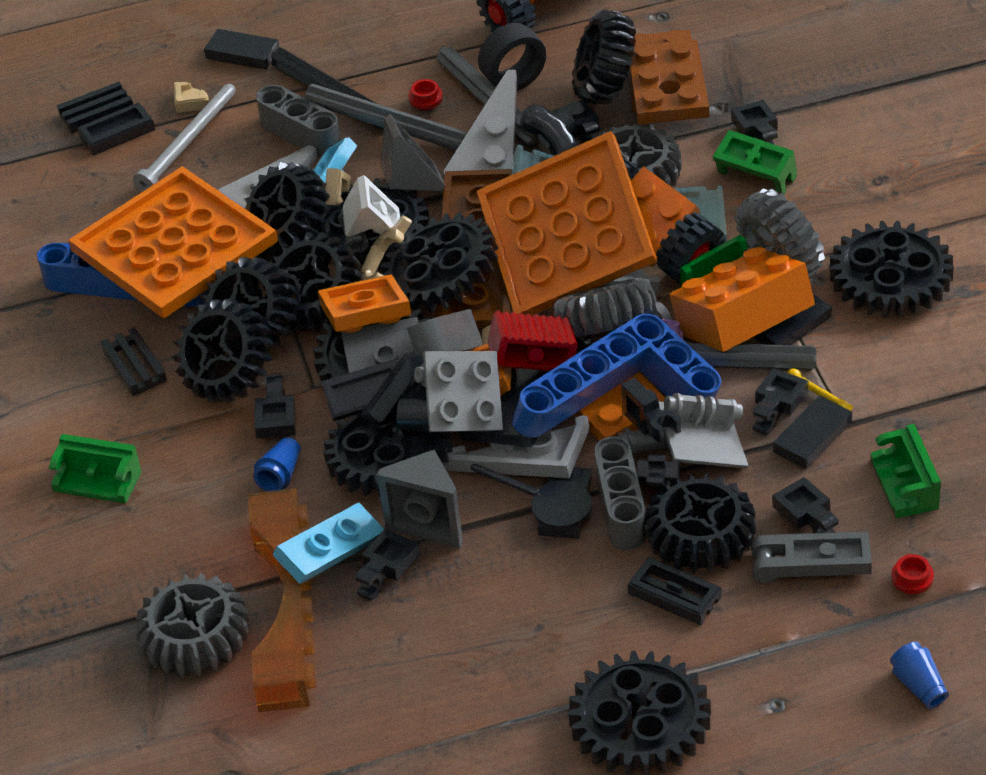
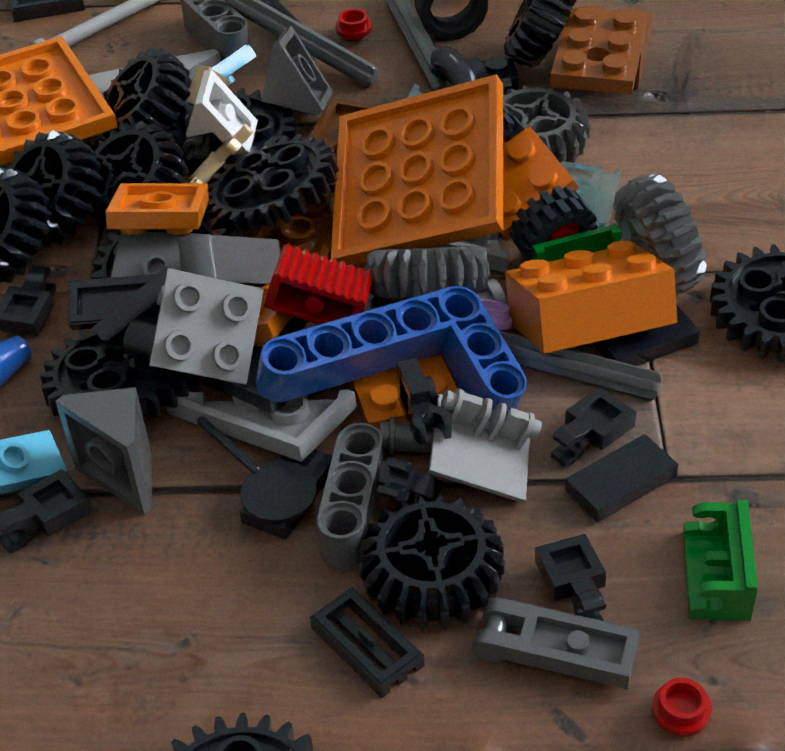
camera: 15 degrees right, 0 degrees up
(492, 135) = (400, 67): light grey wing -> none
(756, 121) = (687, 114): black plate -> none
(756, 158) = (672, 150): green hinge -> none
(819, 391) = (649, 429): yellow hinge -> none

